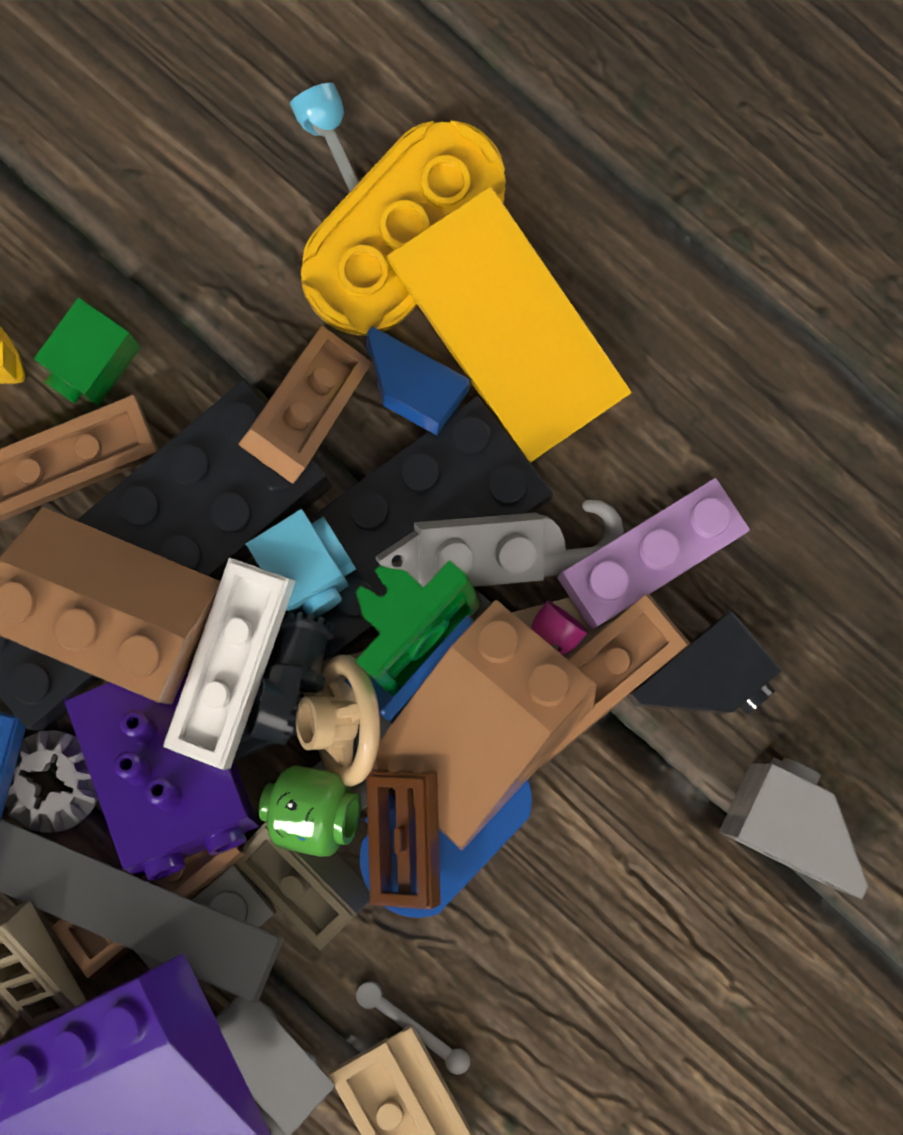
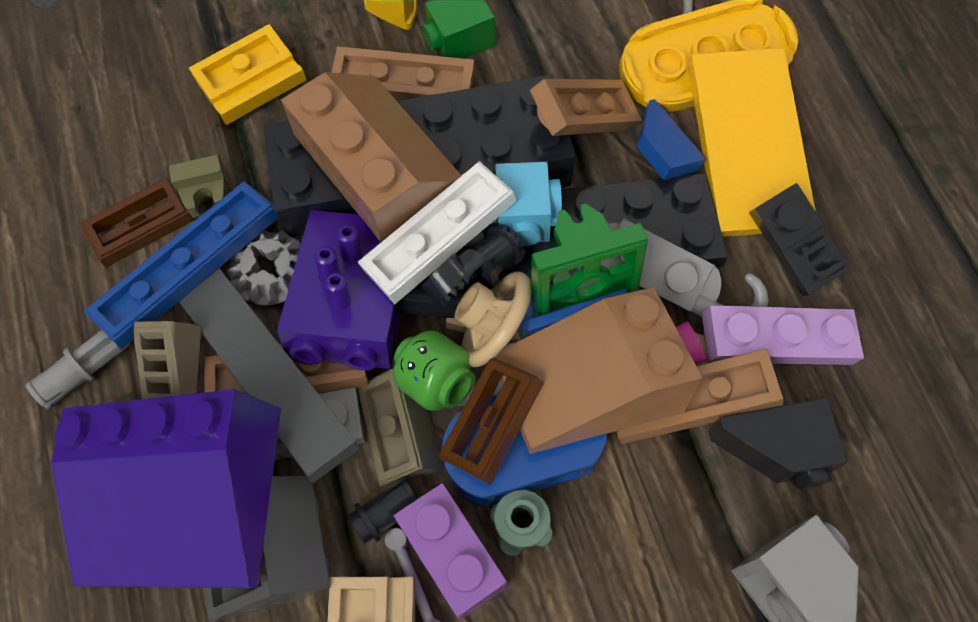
camera: 25 degrees right, 15 degrees down
(340, 977) = (378, 513): none -> black pin
(435, 983) = (451, 551): none -> medium lavender brick
(487, 885) = (515, 538): none -> sand green brick
(620, 426) = (799, 240): none -> black plate

